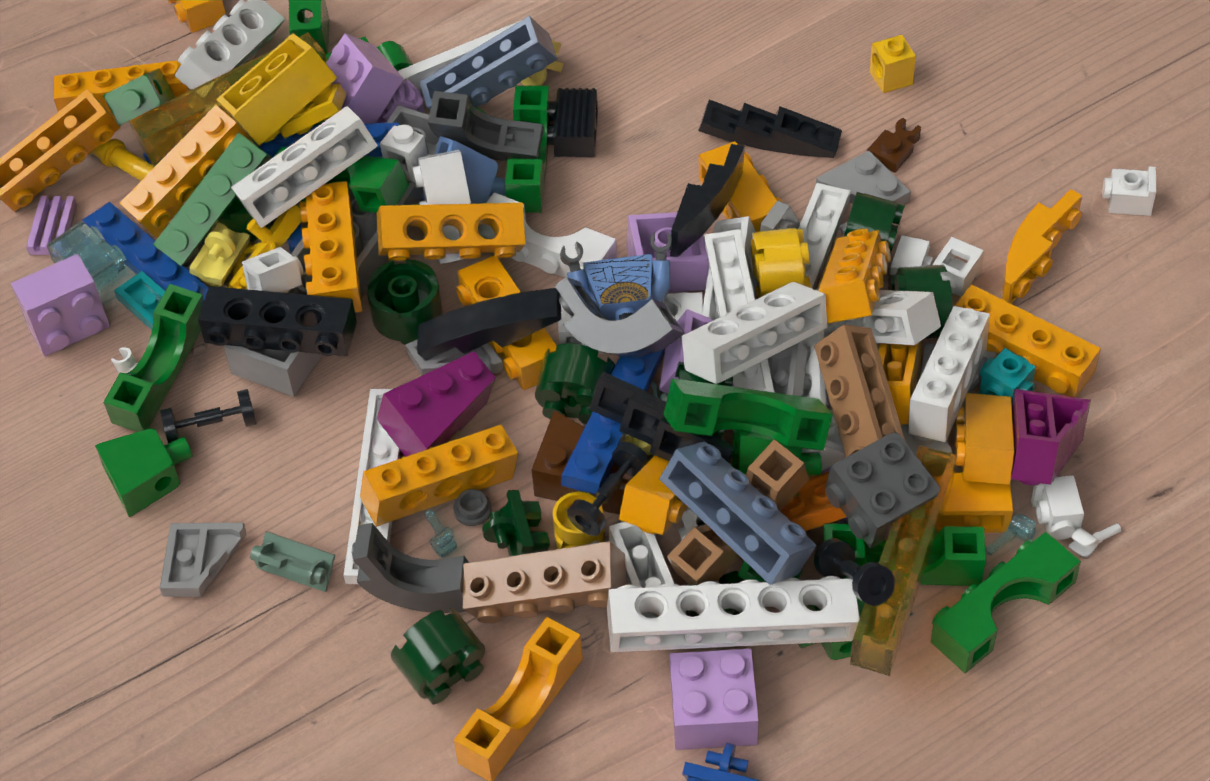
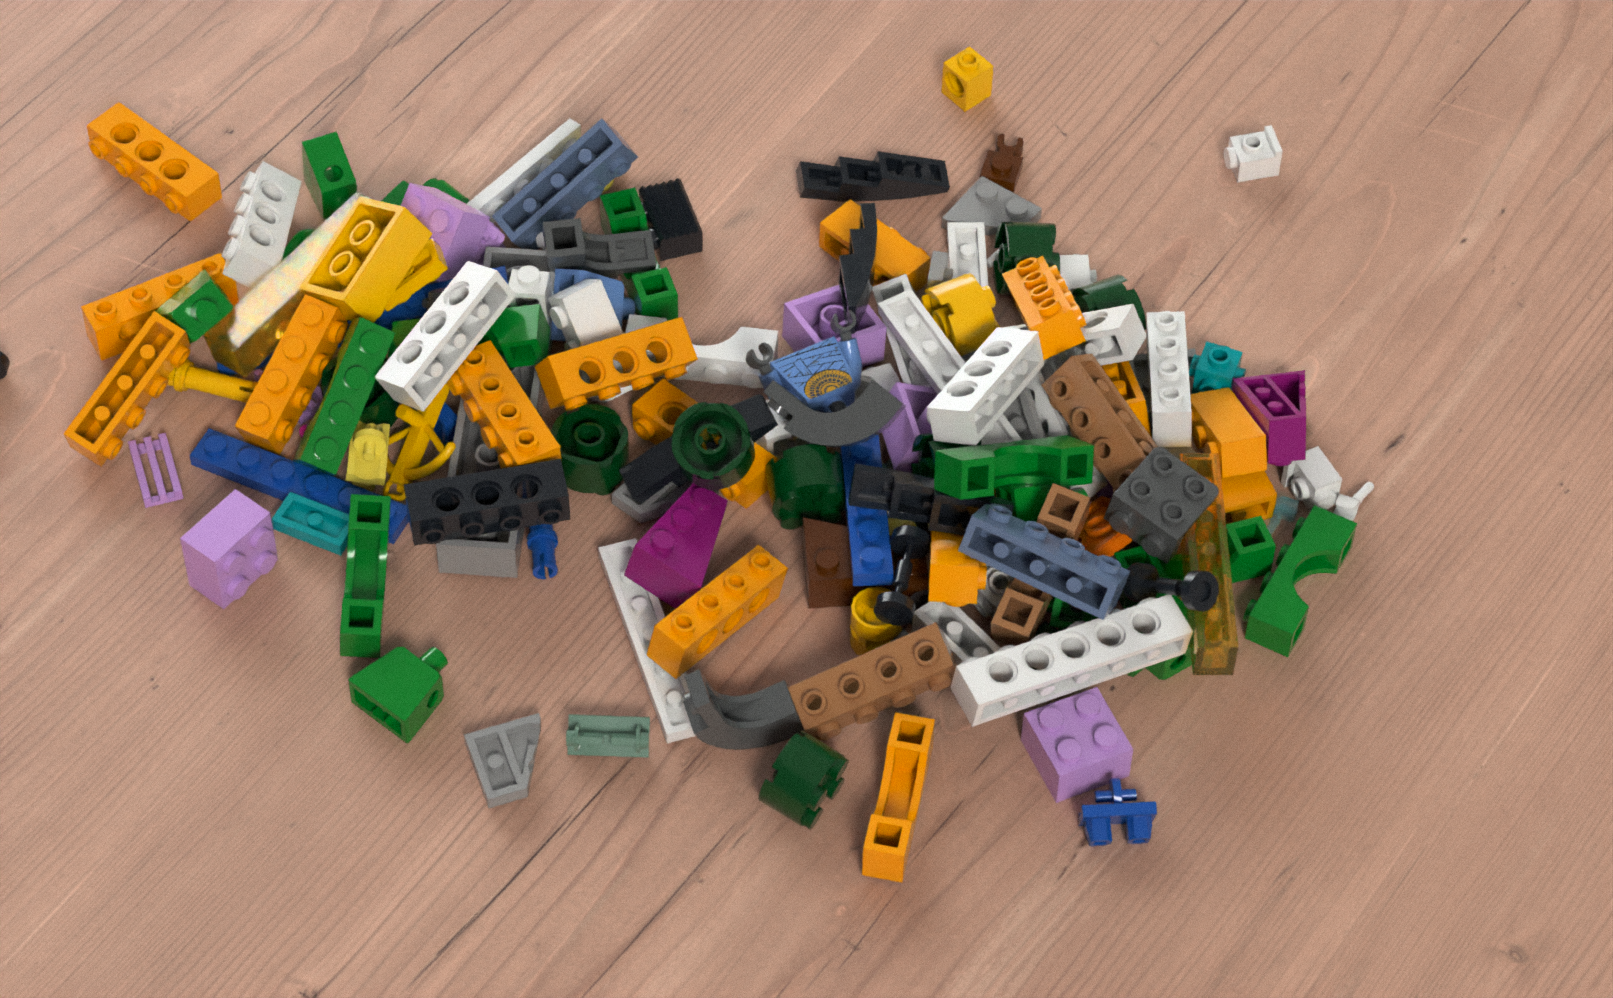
camera: 25 degrees left, 0 degrees up
(102, 261) = (212, 481): clear light blue brick -> none
(128, 362) = (323, 593): white hand -> none
(208, 416) = (477, 601): black wheel -> none
(273, 271) = (456, 453): white brick -> none
(329, 371) = (542, 543): none -> blue pin
(443, 540) = (744, 672): clear light blue hand -> none
(472, 508) = (757, 635): dark grey plate -> none
(487, 322) = (722, 426): none -> dark green brick
(511, 526) = (810, 641): dark green hips -> none
(959, 272) = (1126, 256): white brick -> none
(1033, 244) = (1186, 233): light orange slope -> none
(1060, 357) = (1215, 325): light orange brick -> none

